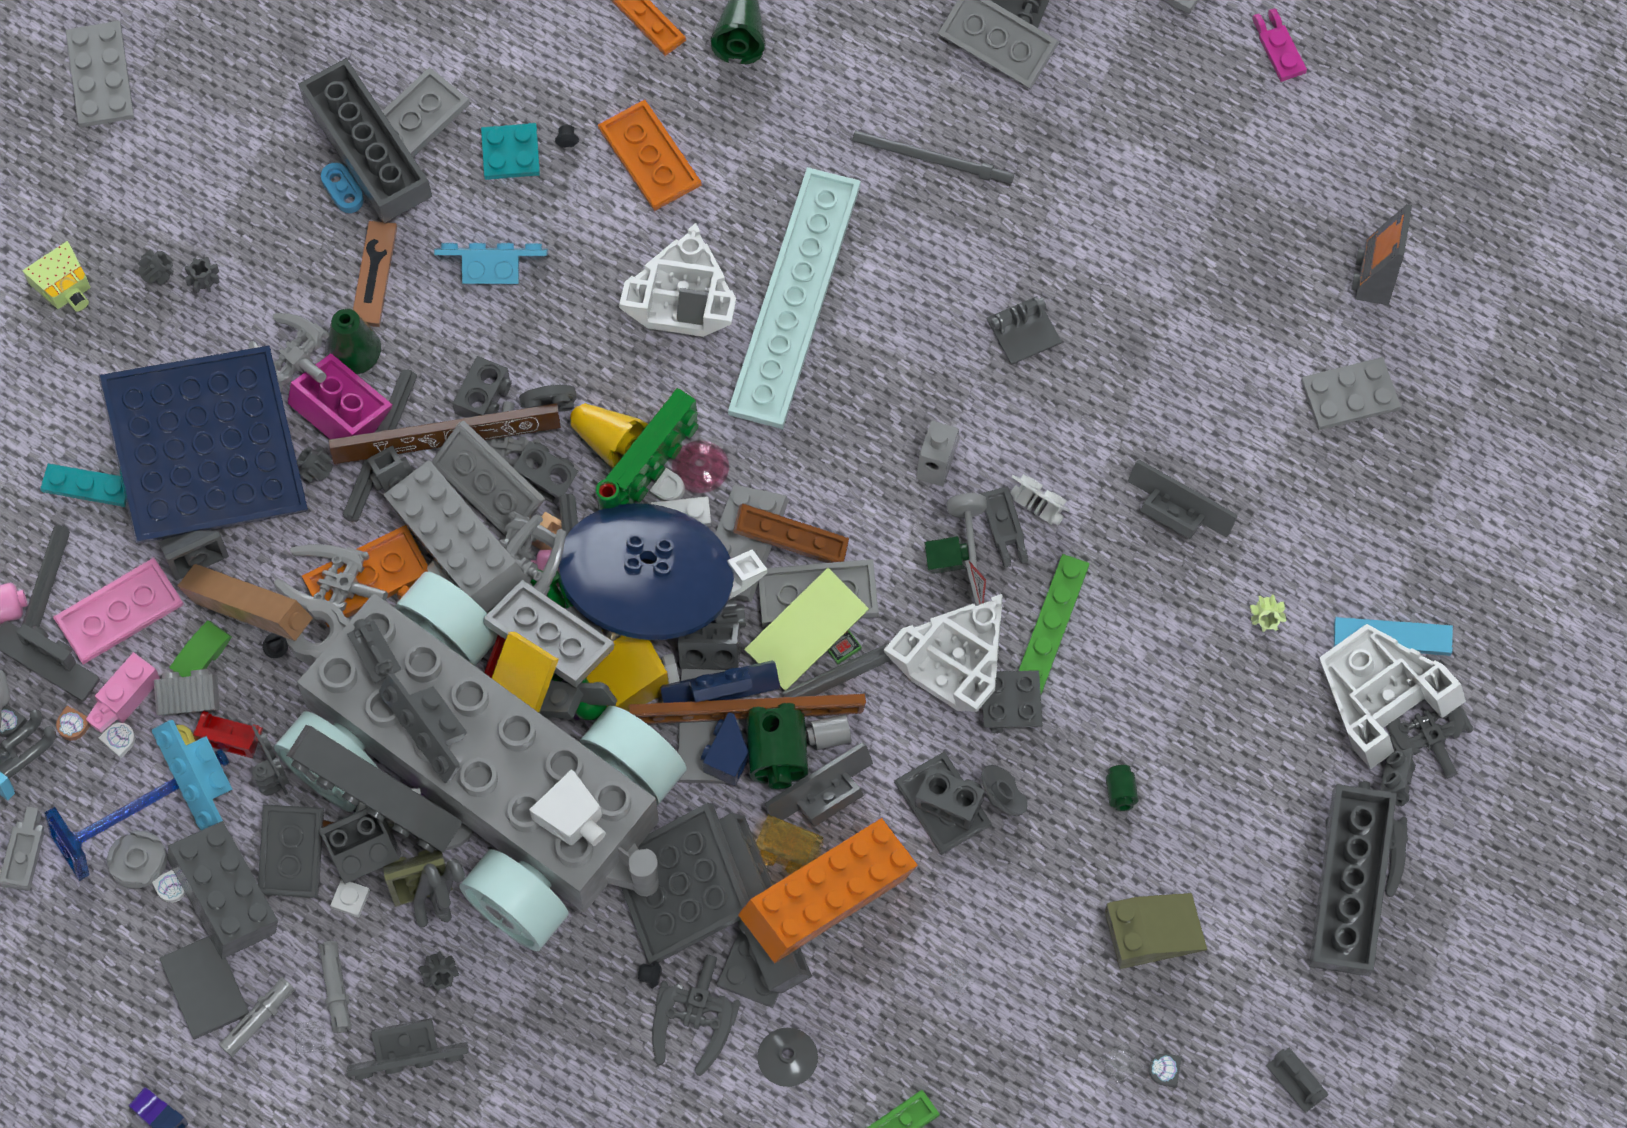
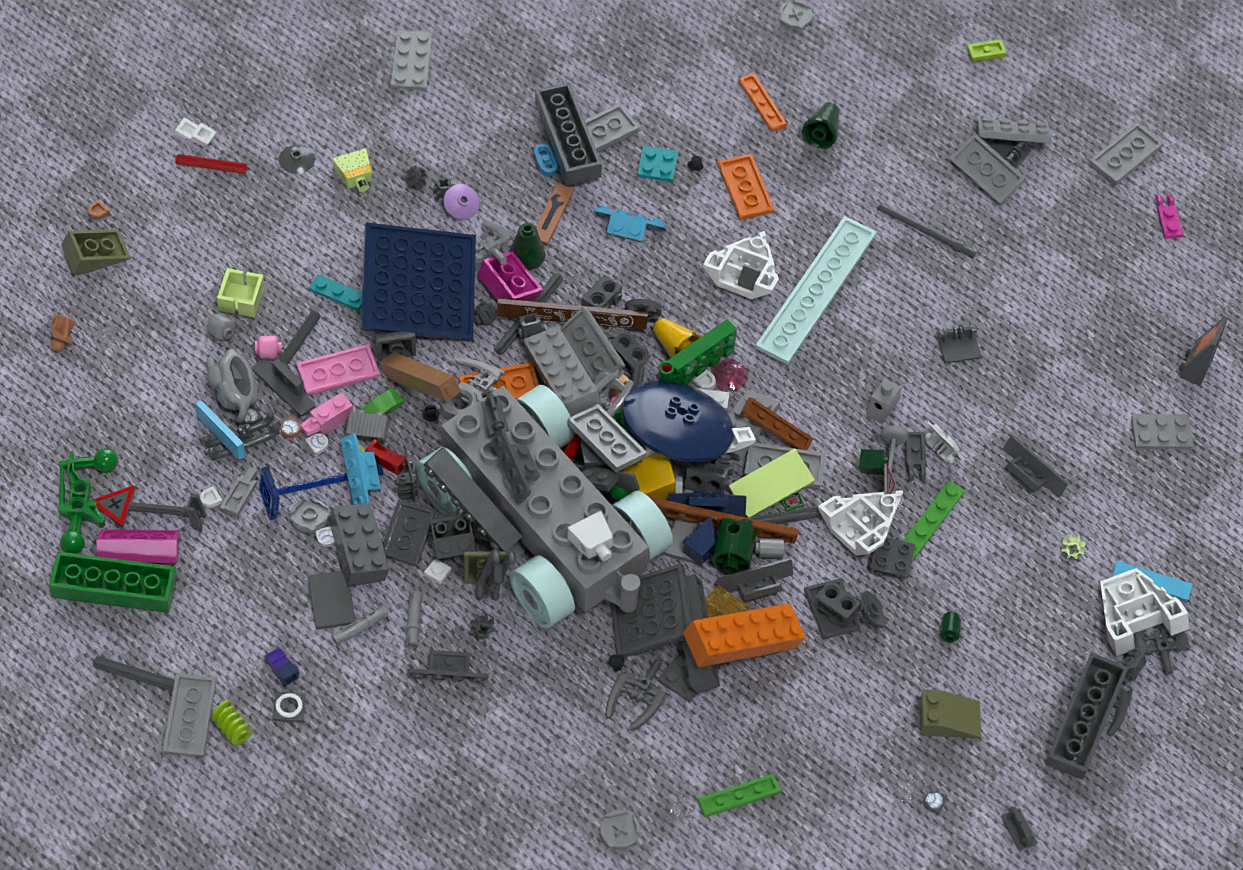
camera: 10 degrees right, 10 degrees down
(222, 297) = (455, 207): none -> lavender dish
(525, 670) = (587, 453): yellow tile -> none
(787, 1071) = (691, 741): dark grey dish -> none

